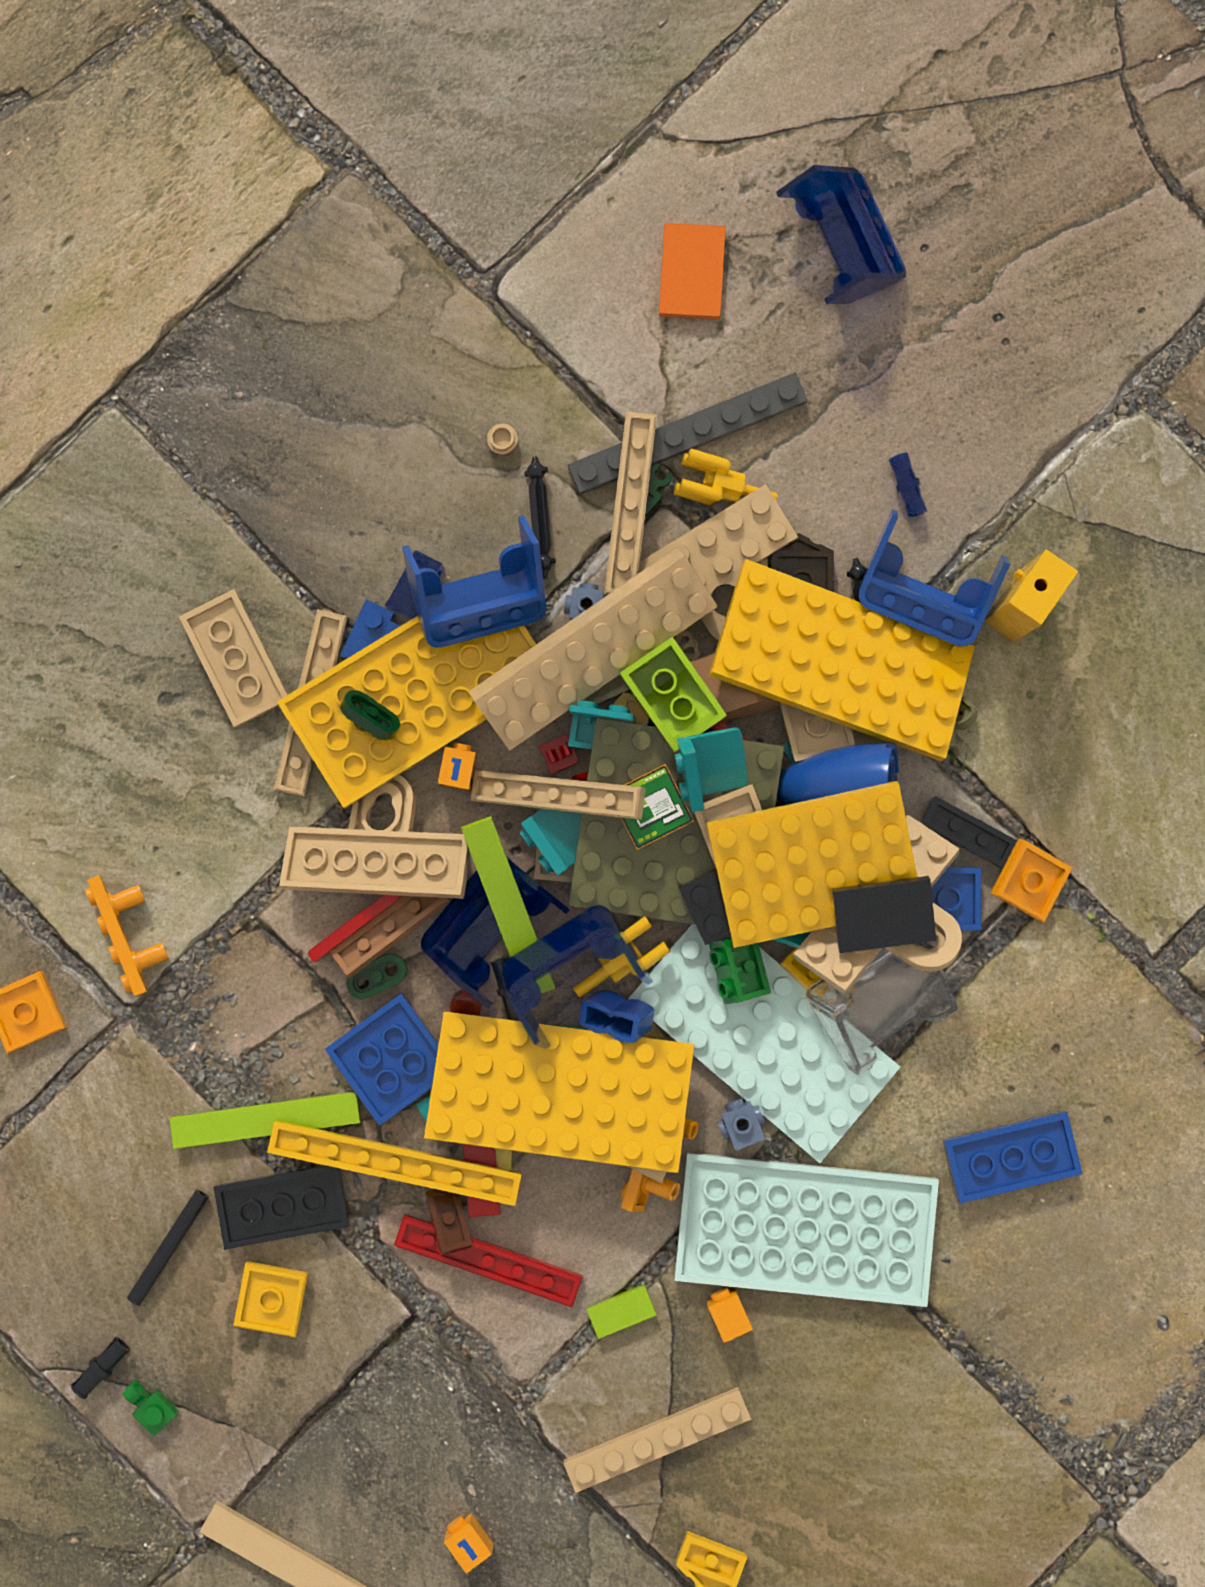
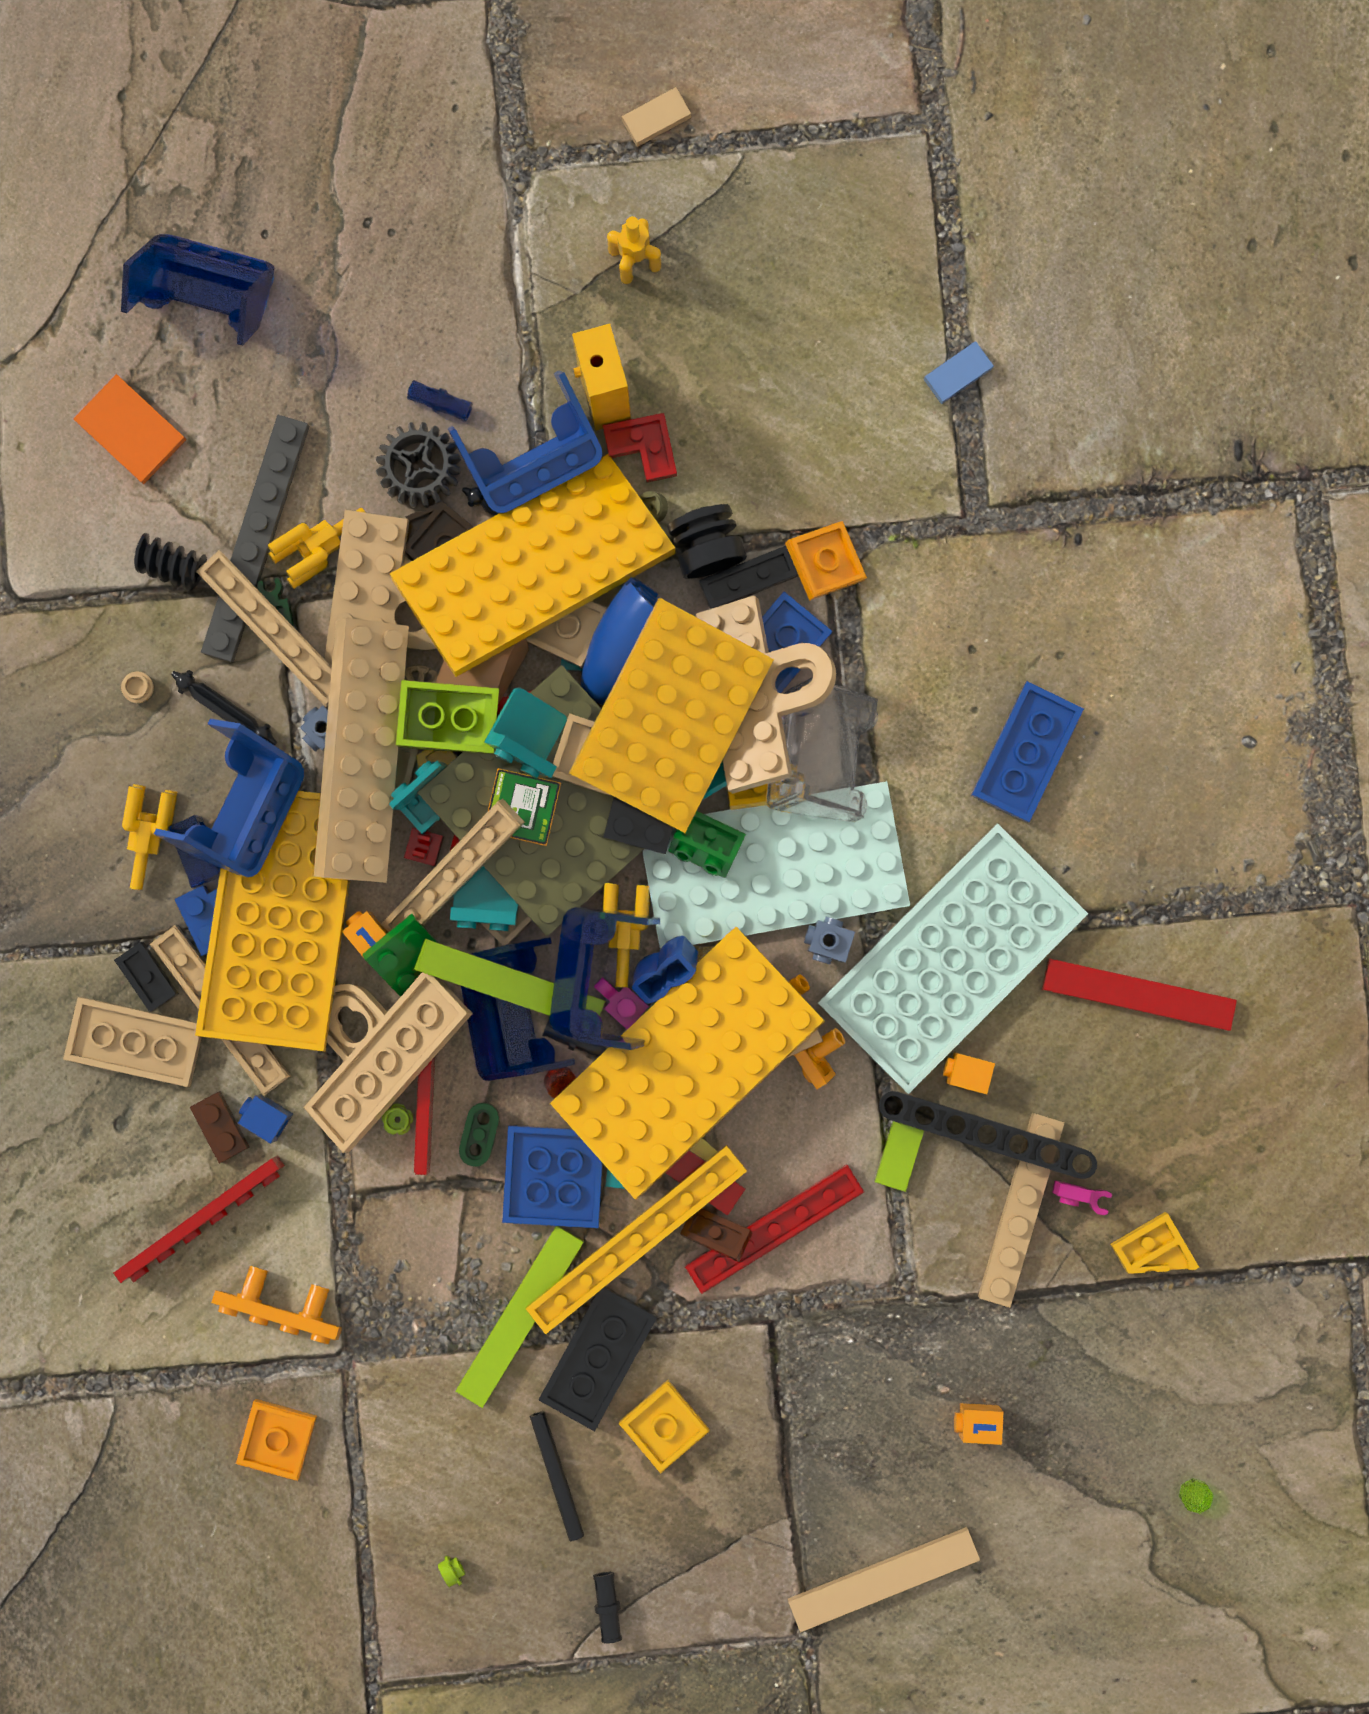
camera: 55 degrees left, 0 degrees up
(32, 1226) = (451, 1571): none -> lime plate
(128, 817) = (190, 1229): none -> red plate
(152, 1410) = (675, 1592): green plate -> none
(223, 775) = (219, 1127): none -> reddish brown plate
(257, 803) = (264, 1117): none -> blue brick
(290, 627) = (146, 977): none -> black plate
(337, 913) = (393, 1127): none -> lime plate
(370, 715) = (267, 969): dark green plate -> none
(385, 931) = (449, 1097): medium nougat plate -> none
(401, 533) = (143, 826): none -> yellow plant
(462, 804) = (398, 953): none -> green plate
(564, 1005) = (623, 1004): none -> dark pink plate
(613, 384) = (167, 564): none -> black piece
(694, 1384) = (1003, 1135): none -> black beam
(702, 1471) = (1073, 1194): none -> dark pink plate
(848, 522) = (423, 452): none -> dark grey gear
(884, 914) = (753, 694): black tile -> none
(897, 1397) = (1139, 994): none -> red tile
(967, 782) = (704, 534): none -> black wheel
(1012, 666) = (644, 436): none -> red plate
(1149, 535) = (633, 246): none -> yellow plant

